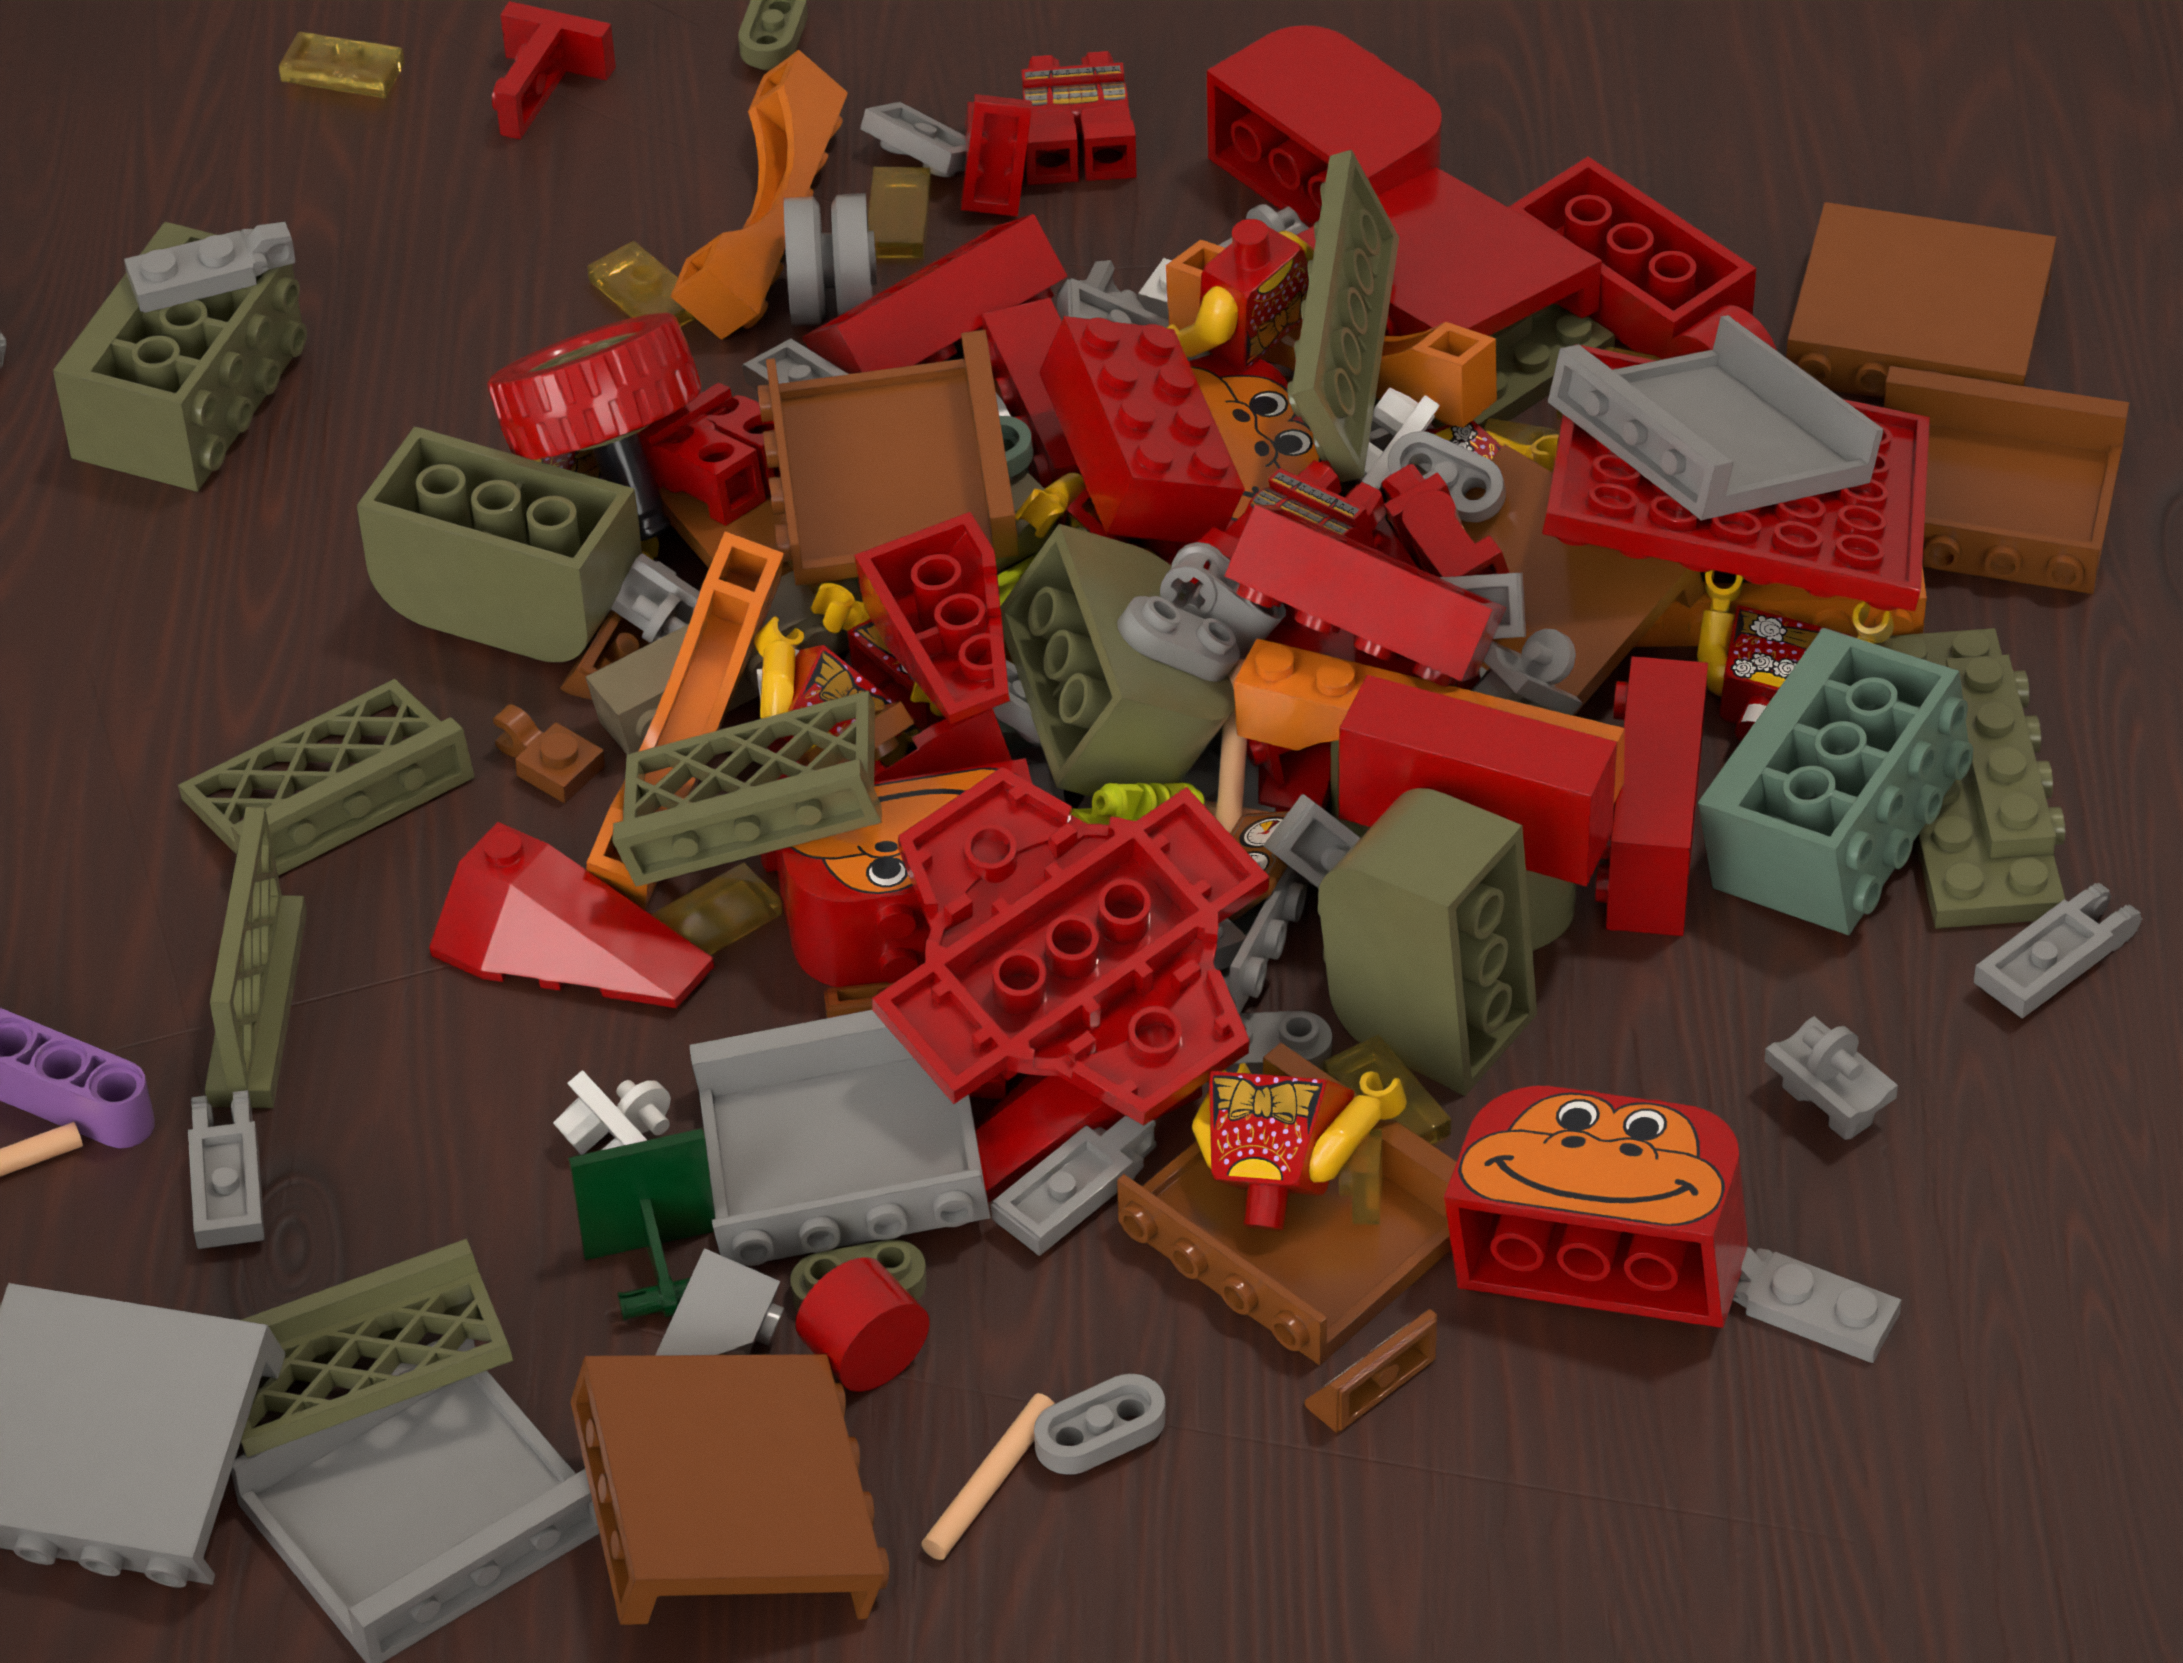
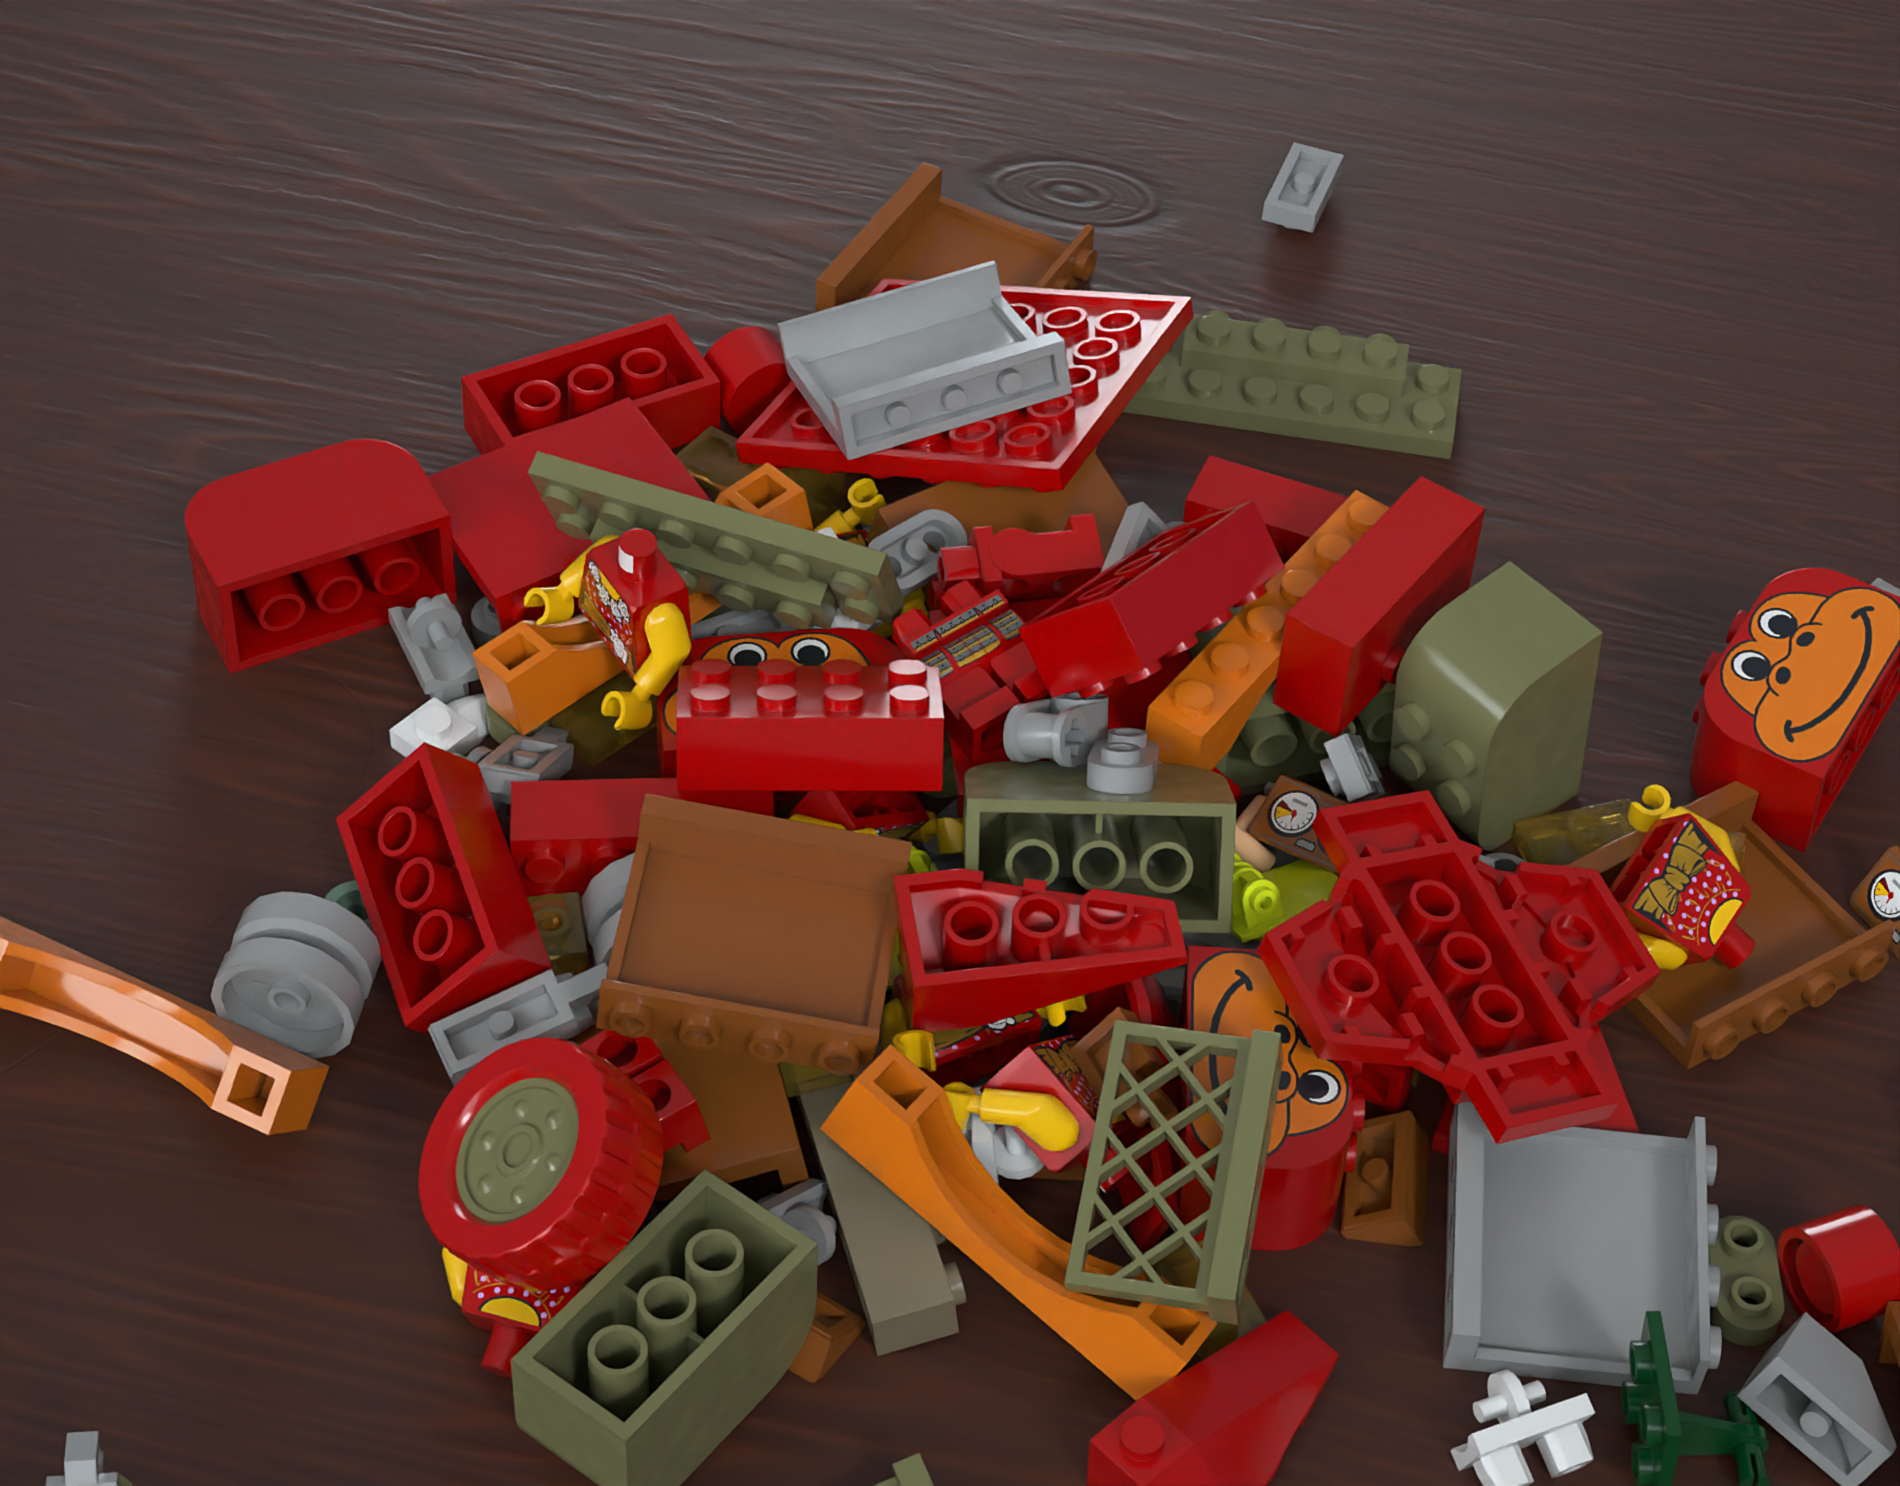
camera: 80 degrees left, 0 degrees up
(551, 760) = (932, 1400): dark orange plate -> none
(637, 282) = (200, 1175): clear yellow plate -> none
(899, 211) = (179, 924): clear yellow tile -> none
(915, 134) = (114, 867): light grey plate -> none
(995, 154) = (177, 799): red bracket -> none
(1072, 1182) = (1663, 1080): light grey hinge -> none
(1075, 101) = (137, 746): red hips -> none
(1757, 650) = (1156, 445): torso -> none
(1830, 1072) = (1644, 542): light grey hips -> none
(1836, 781) = (1334, 411): sand green brick -> none
(1917, 299) = (722, 246): dark orange panel -> none
(2055, 950) = (1514, 389): light grey hinge -> none

